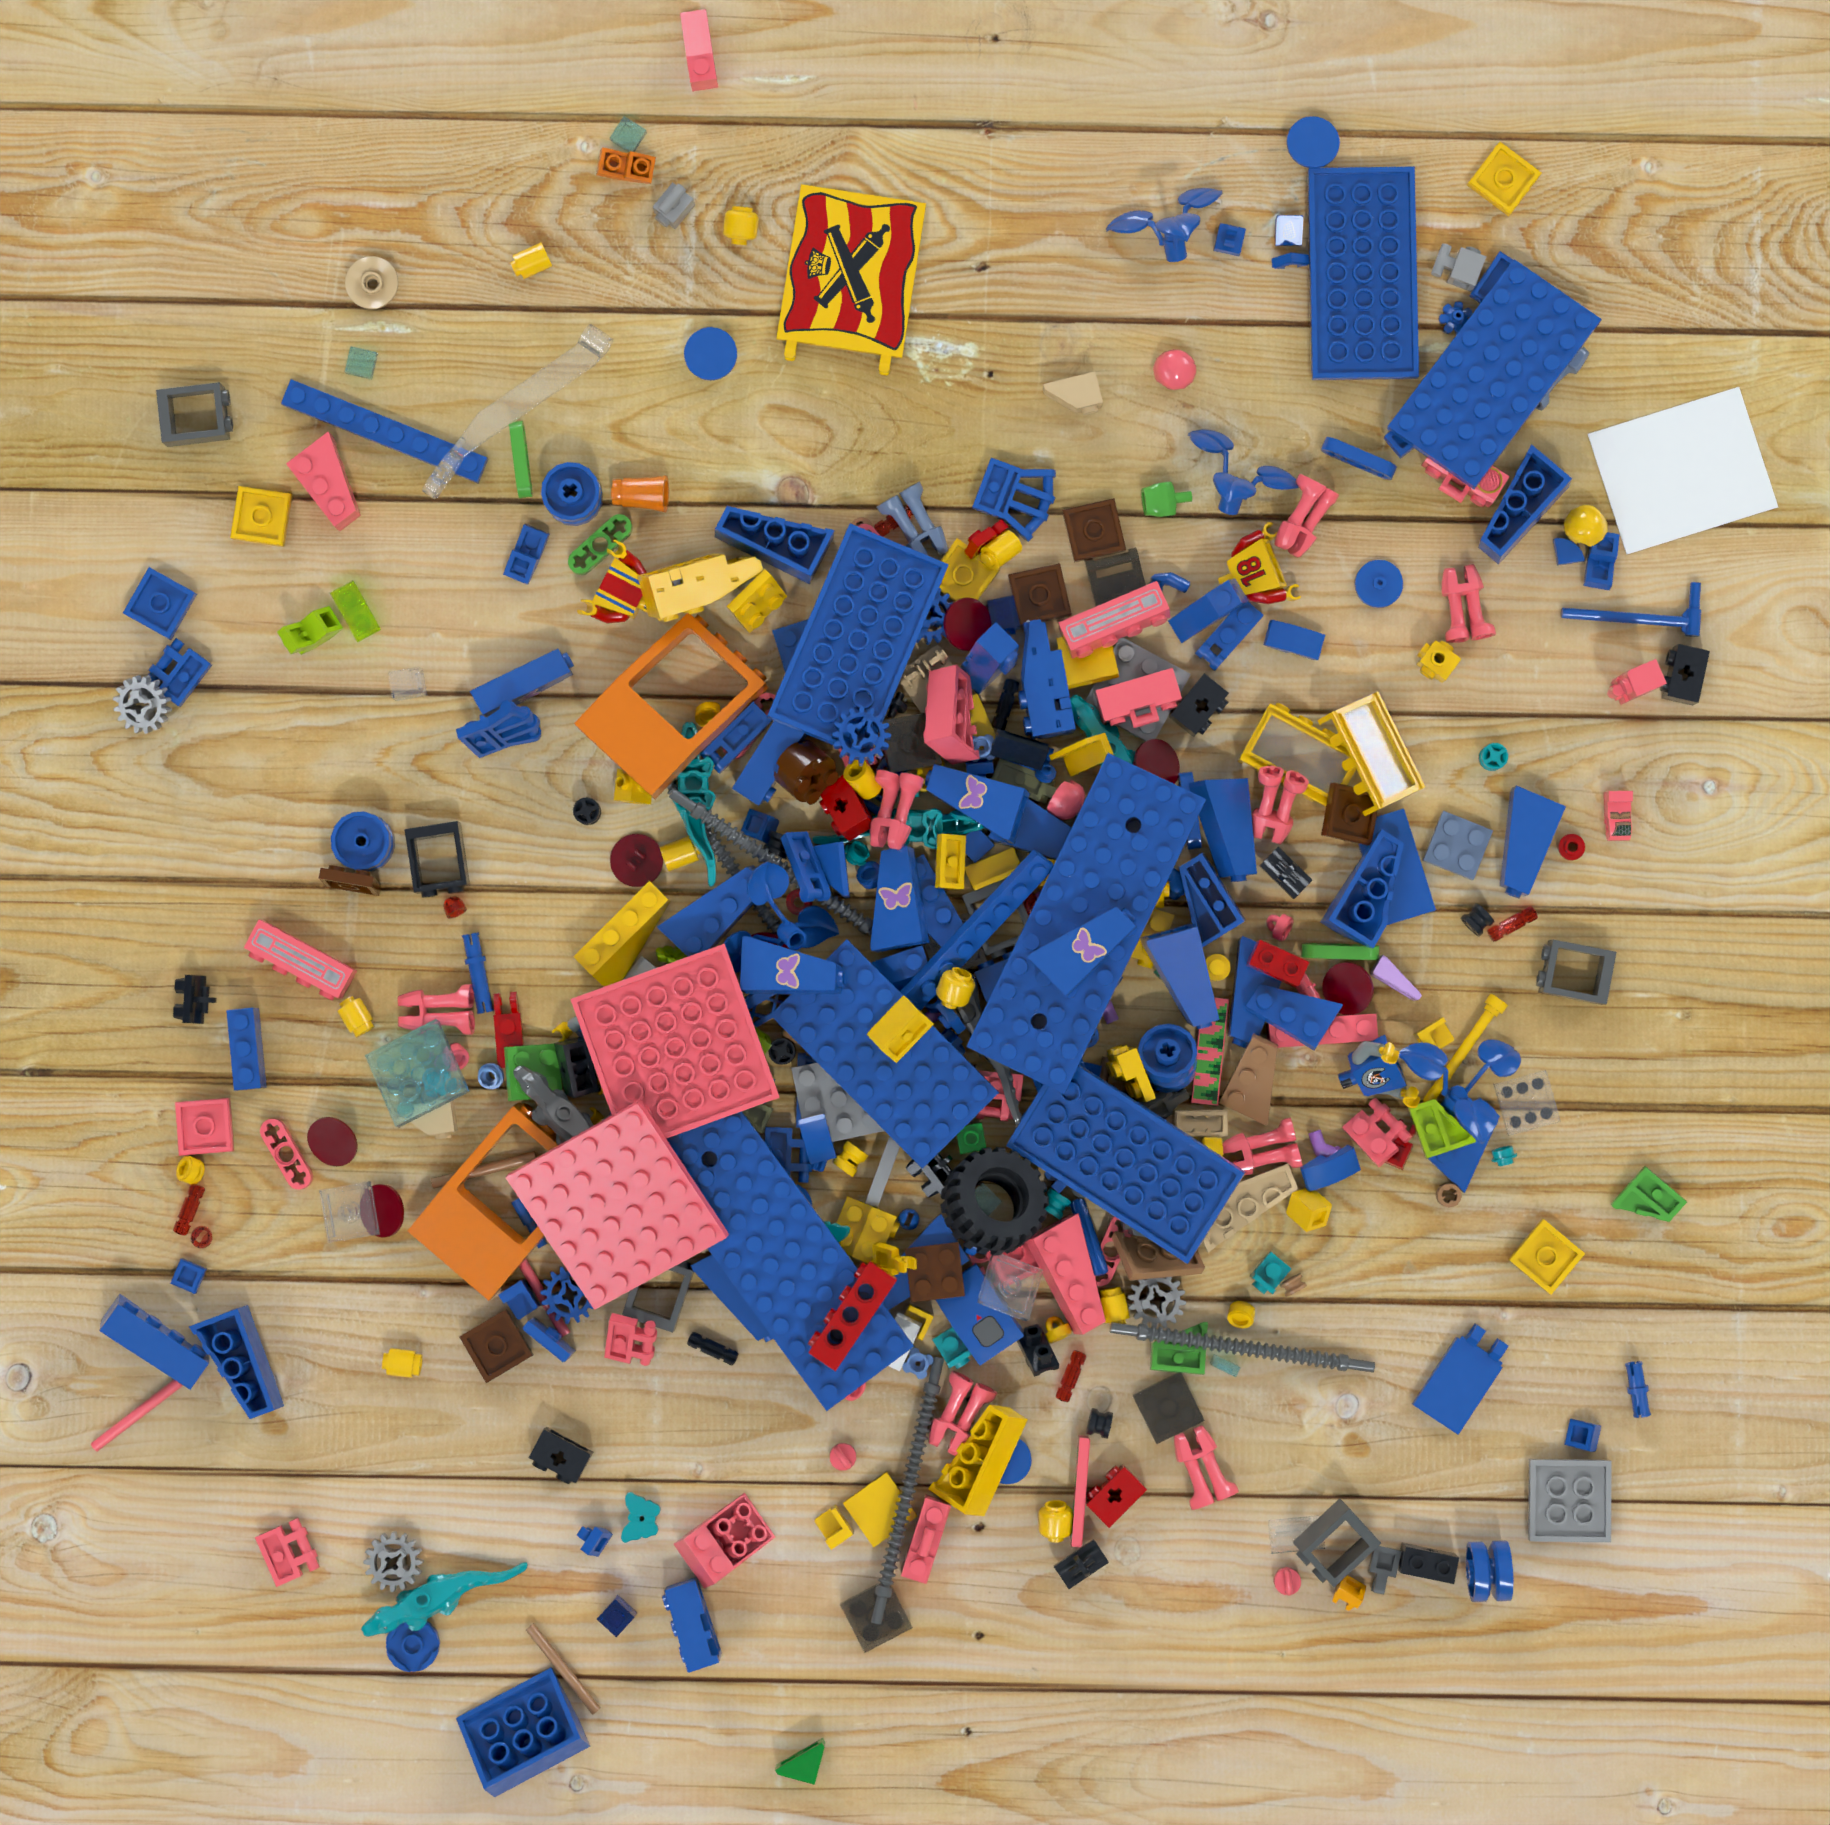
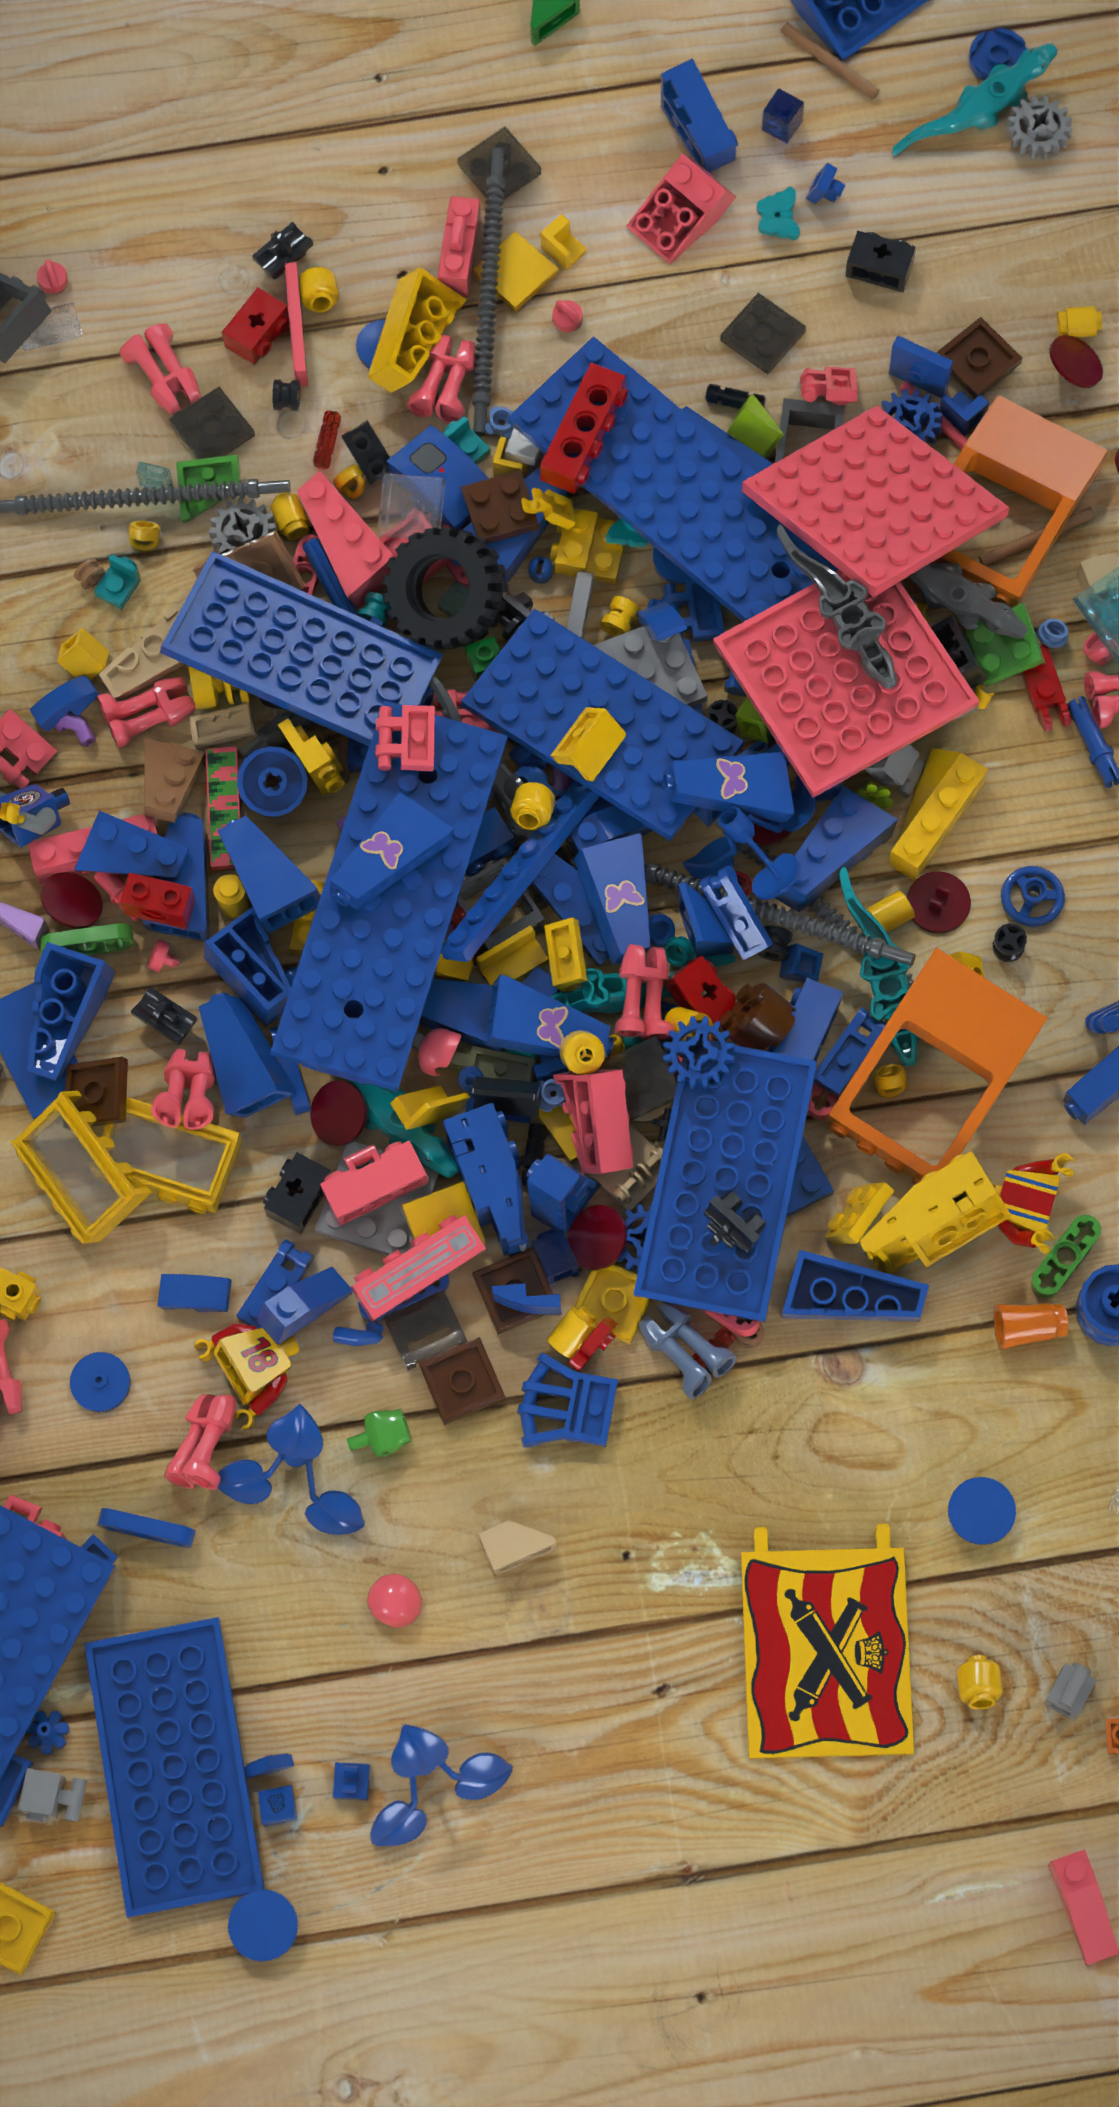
camera: 170 degrees right, 15 degrees down
(413, 1324) = (1076, 361): none -> dark red piece
(571, 833) = (1040, 887): none -> blue piece
(664, 1098) = (846, 606): none -> dark grey animal
(676, 1407) = (762, 333): none -> clear smoke plate
(703, 1311) = (755, 428): none -> lime slope
(866, 608) = (729, 1226): none -> black hips
(954, 762) = (586, 1062): none -> yellow head
(1040, 581) = (515, 1297): none -> blue slope
(1043, 1049) = (416, 738): none -> coral plate

